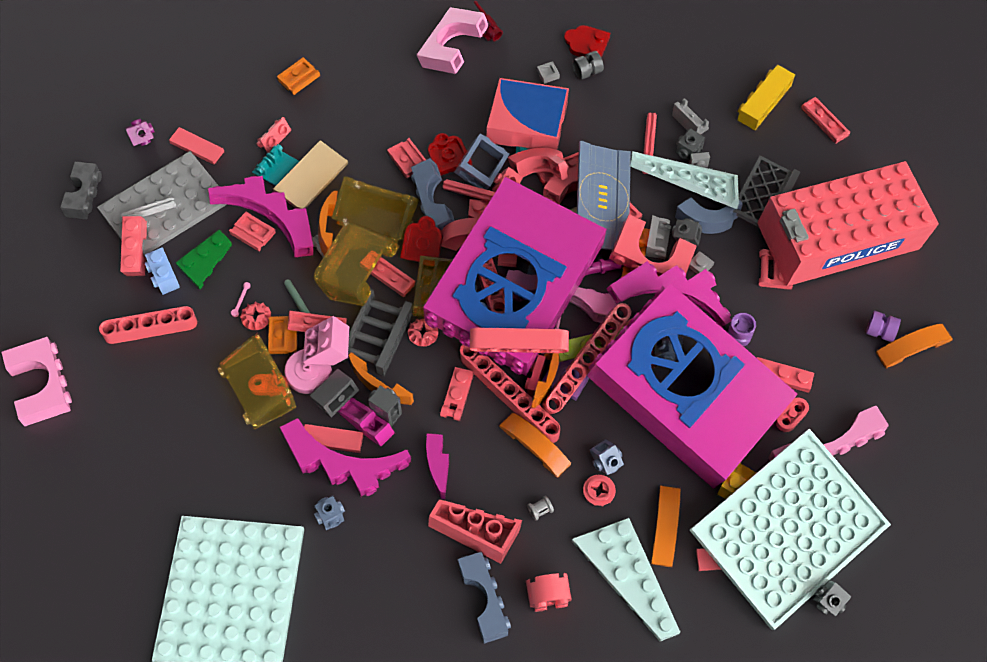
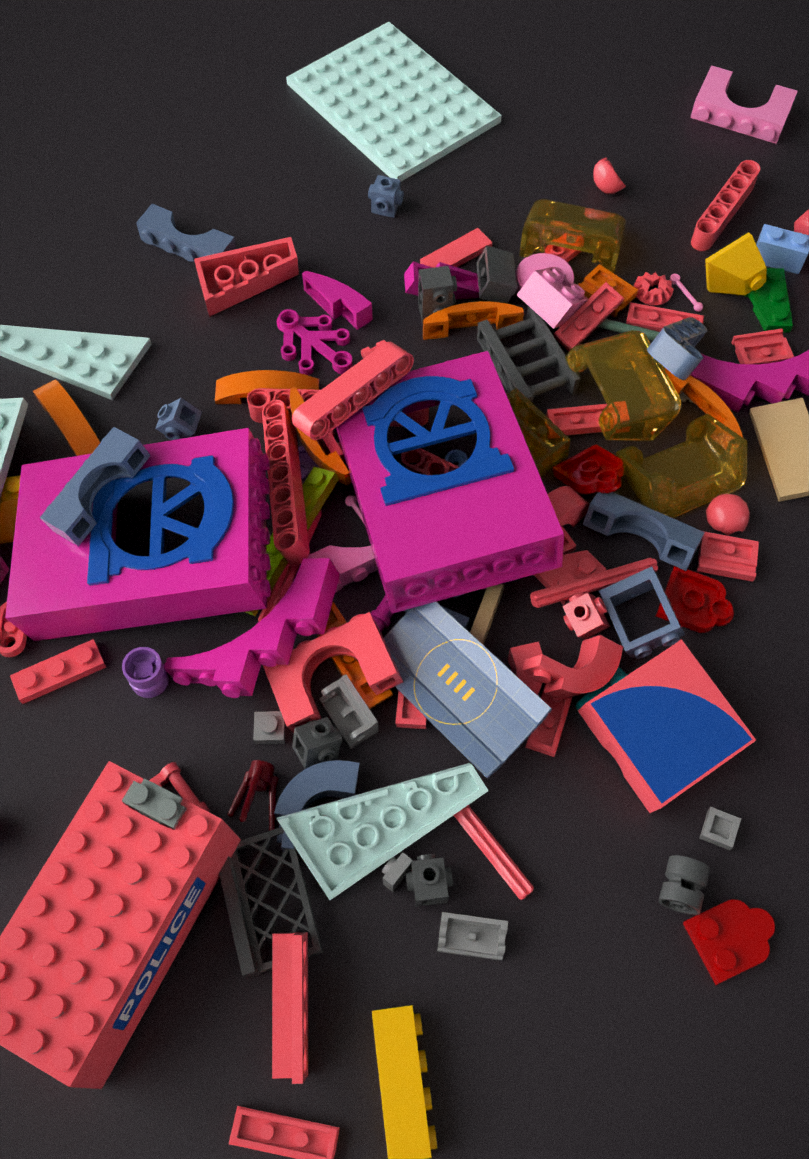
camera: 135 degrees right, 0 degrees up
(186, 402) = (607, 178): none -> coral hair
(210, 273) = (736, 268): none -> yellow slope
(274, 292) = (655, 317): none -> coral tile
(305, 254) = (676, 347): none -> sand blue beam
(363, 472) = (423, 227): dark pink arch -> none
(381, 175) = (728, 514): none -> coral hair
(478, 454) = (291, 323): none -> dark pink plant
(540, 508) = (204, 338): light grey bush -> none
(548, 591) = (127, 274): coral brick -> none
(607, 487) = (151, 396): coral gear -> none
(677, 409) = (114, 458): none -> sand blue arch
(725, 243) = (257, 779): none -> dark red plant
(788, 148) = (290, 1006): none -> coral fence

